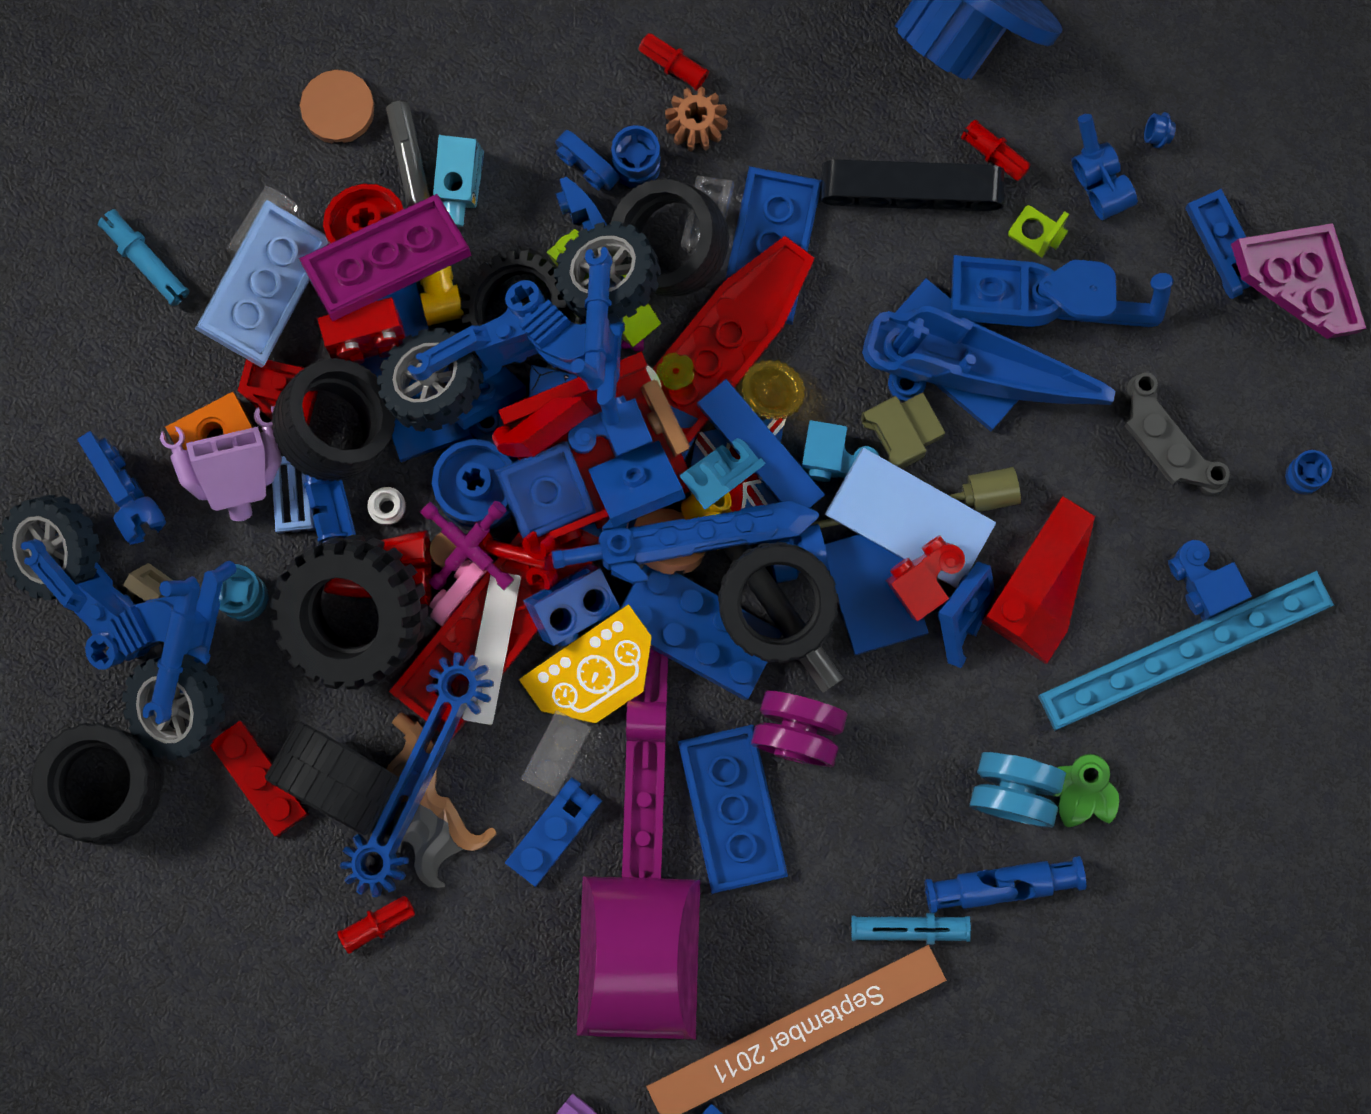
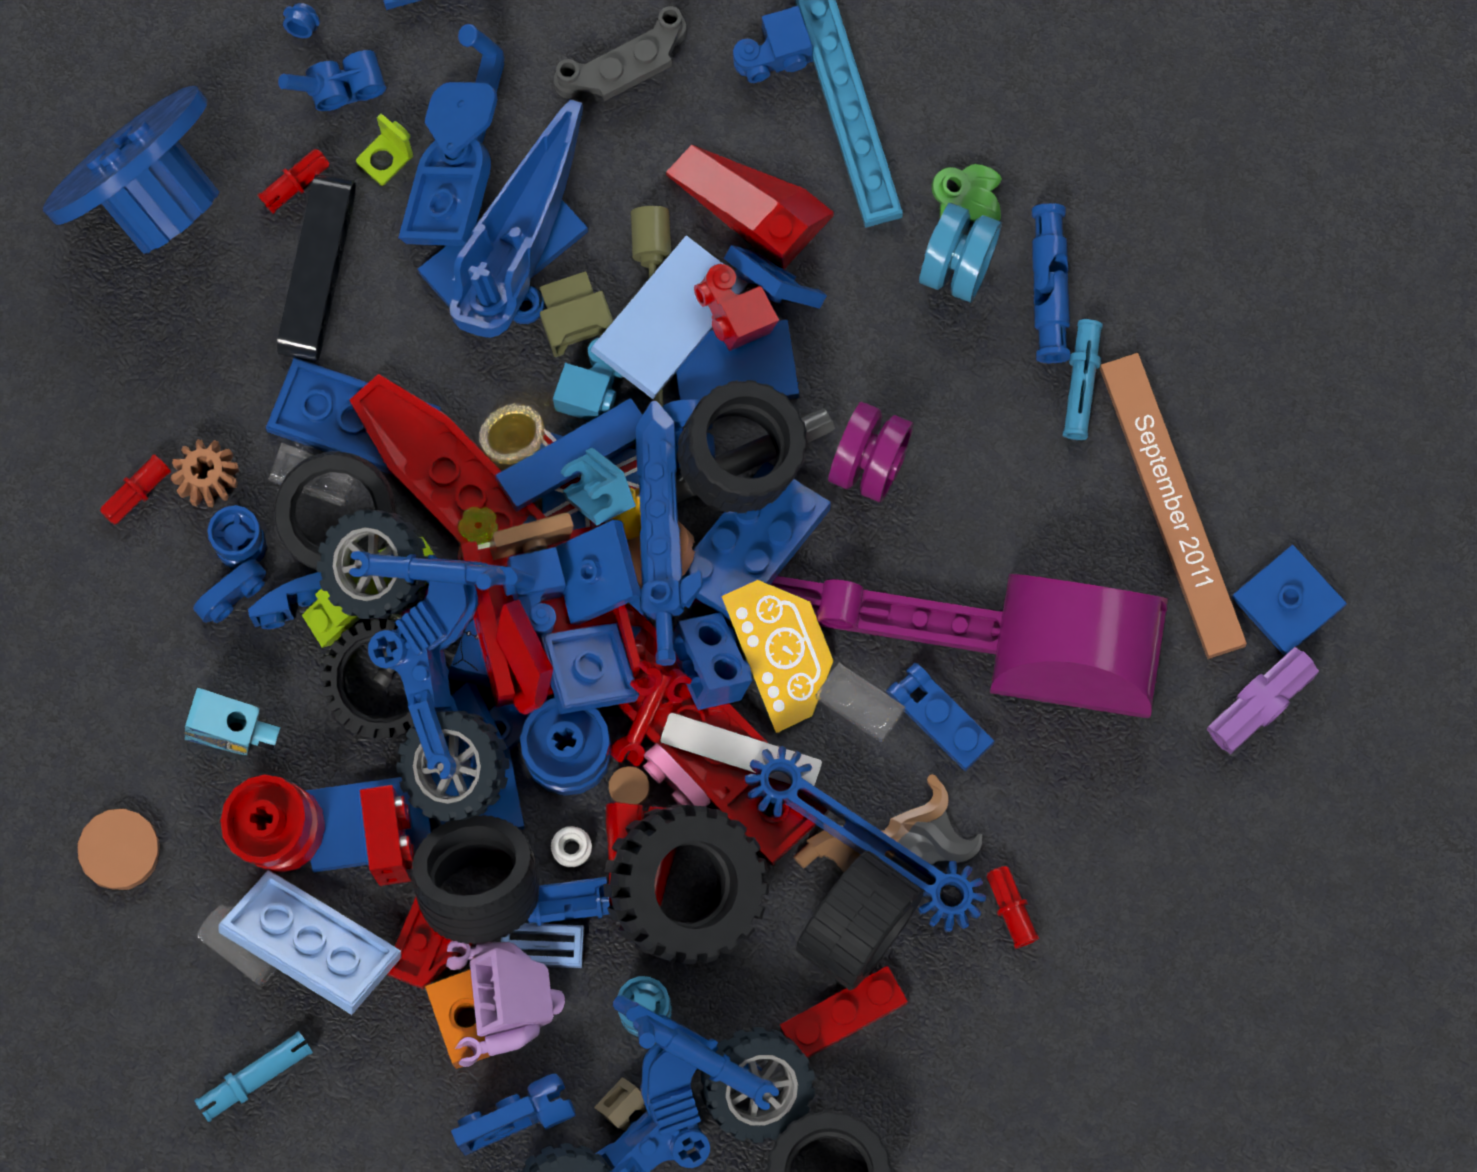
camera: 80 degrees left, 5 degrees down
(385, 257) = (313, 794): magenta tile -> none
(440, 297) = (354, 762): piece -> none
(467, 545) = (631, 758): magenta piece -> none
(732, 809) = (939, 536): blue tile -> none

